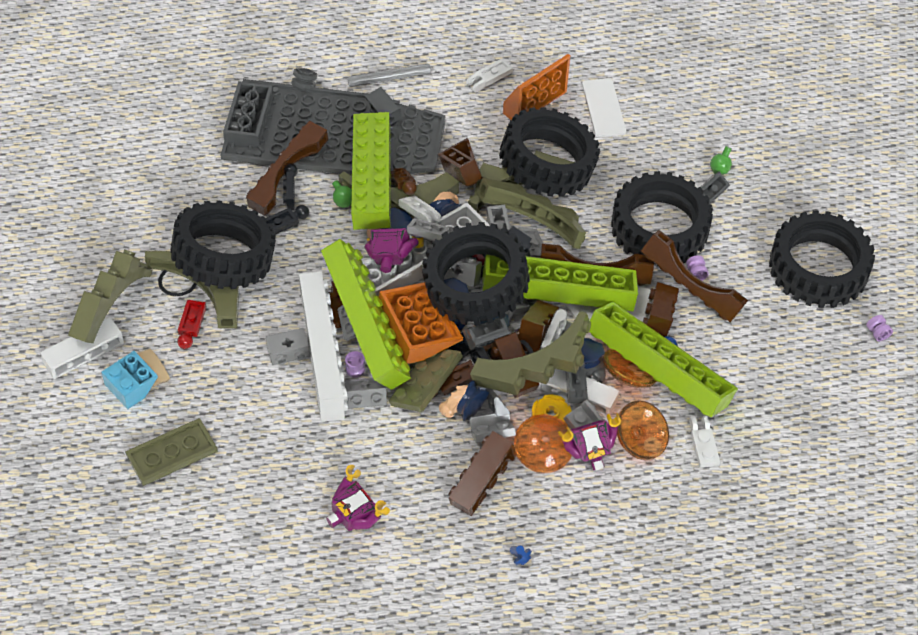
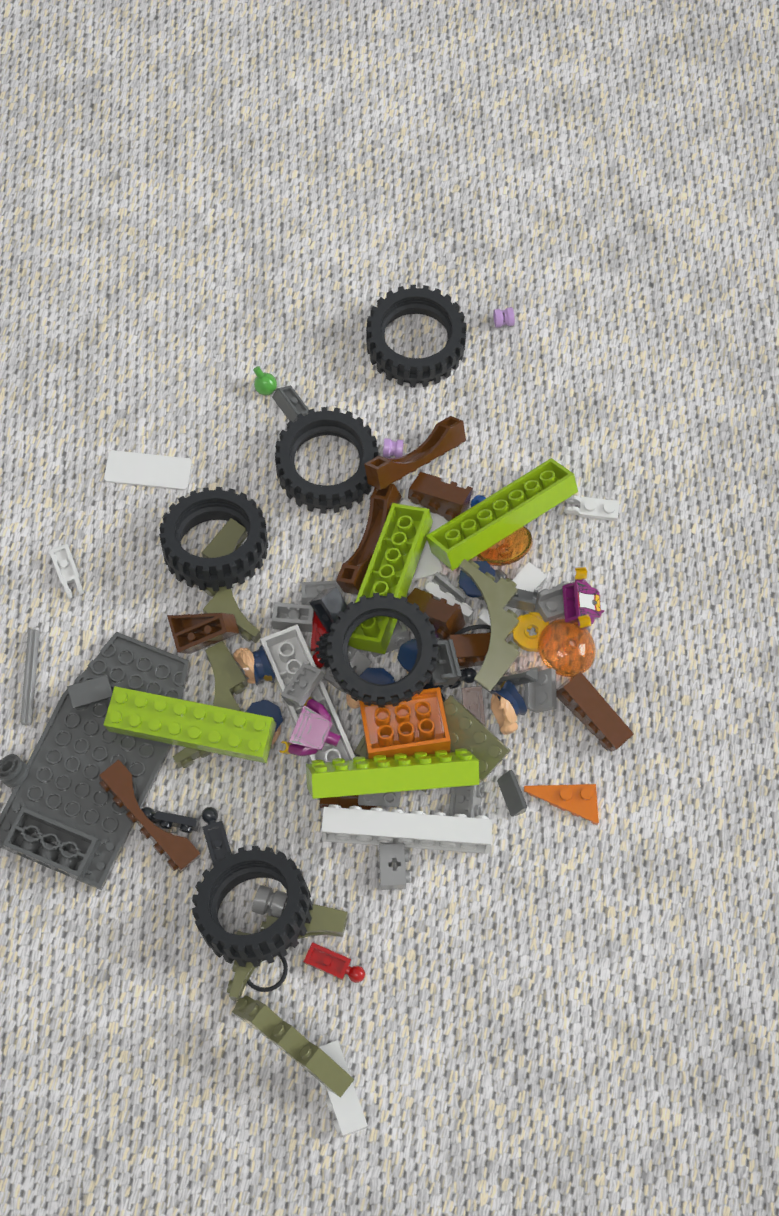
camera: 75 degrees left, 15 degrees up
(129, 379) = (398, 1040): medium azure slope -> none
(156, 365) = (383, 1015): tan slope -> none
(171, 451) = (496, 1011): olive plate -> none
(342, 195) = (202, 766): bright green piece -> none
(353, 505) = (603, 840): torso -> none
(355, 364) = (431, 802): lavender wheel -> none
(383, 428) = (512, 793): none -> dark grey slope
(392, 480) = (577, 799): none -> orange wing
(403, 180) = (209, 694): reddish brown plate -> none
(420, 209) = (259, 688): white hinge -> none
(522, 556) = (683, 700): blue plate -> none
(539, 89) = (115, 527): orange slope -> none
(557, 218) = (282, 571): olive arch -> none
(650, 430) = (576, 551): clear orange dish -> none

